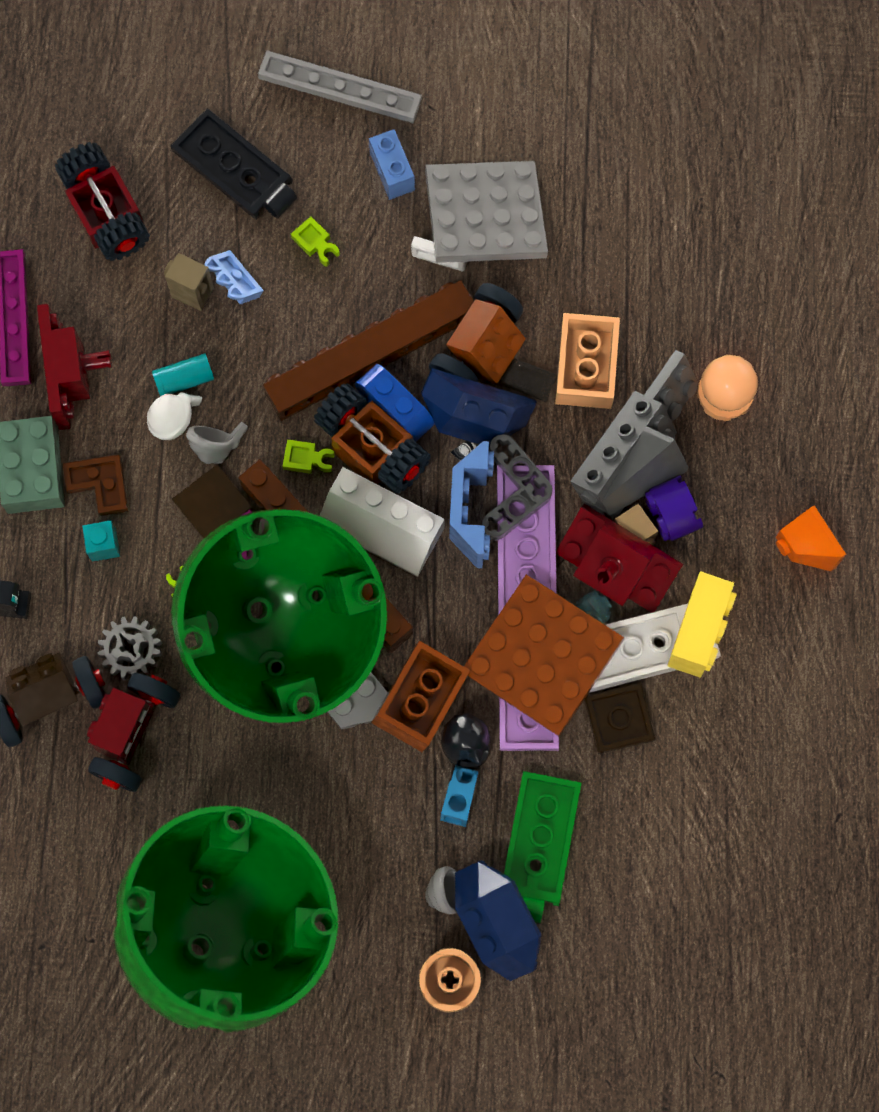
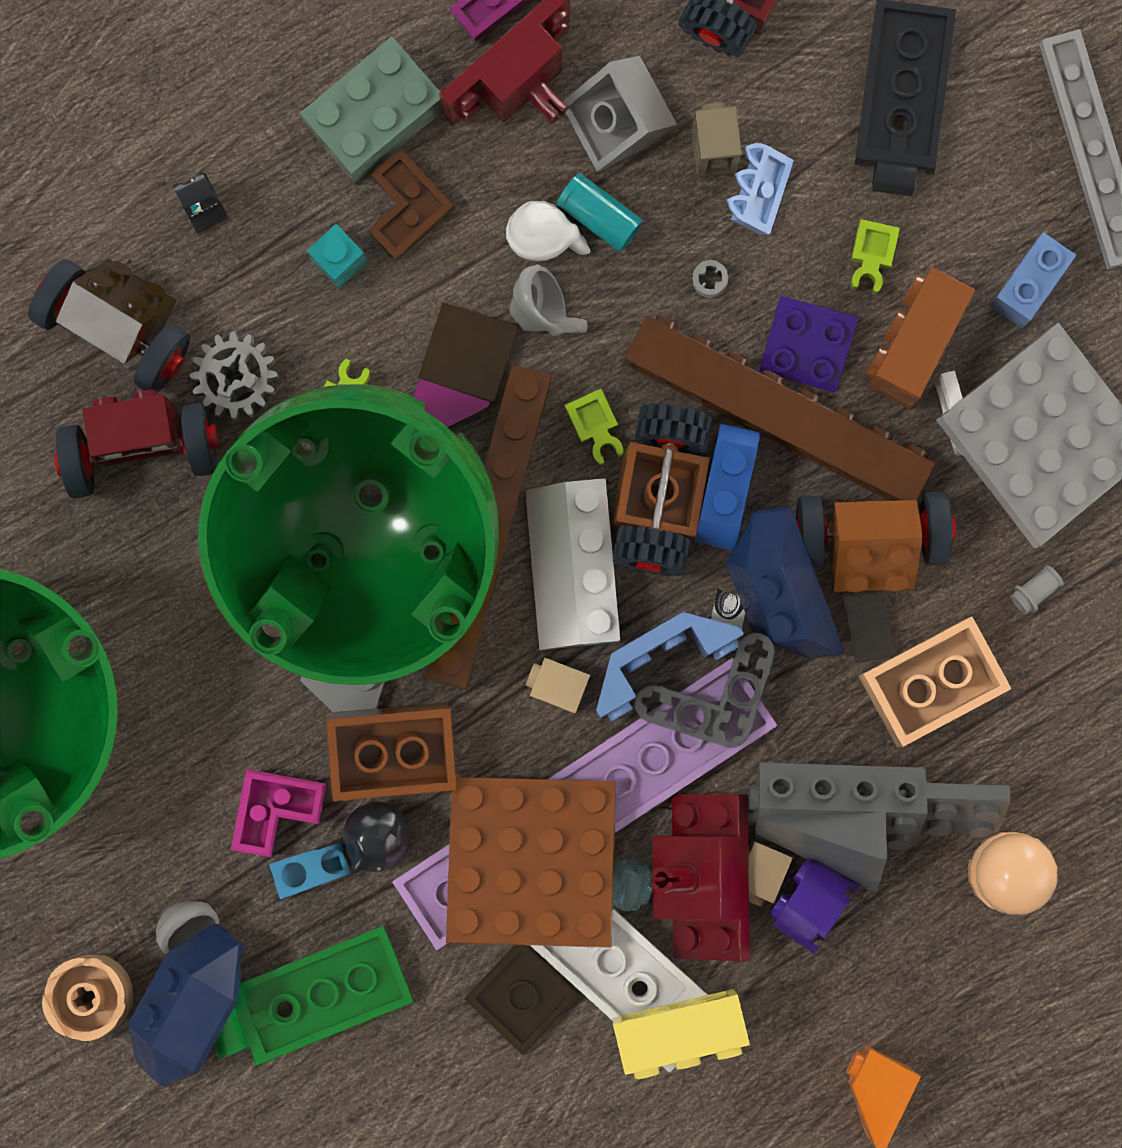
camera: 60 degrees right, 10 degrees up
(132, 328) = (618, 112): none -> light grey slope
(263, 331) = (700, 271): none -> light grey bush
(342, 307) = (808, 343): none -> dark purple hinge
(382, 243) = (918, 337): none -> dark orange brick
(400, 793) = (265, 800): none -> dark pink brick
(446, 576) = (557, 684): none -> tan brick
(572, 281) = (1036, 590): none -> light grey pin

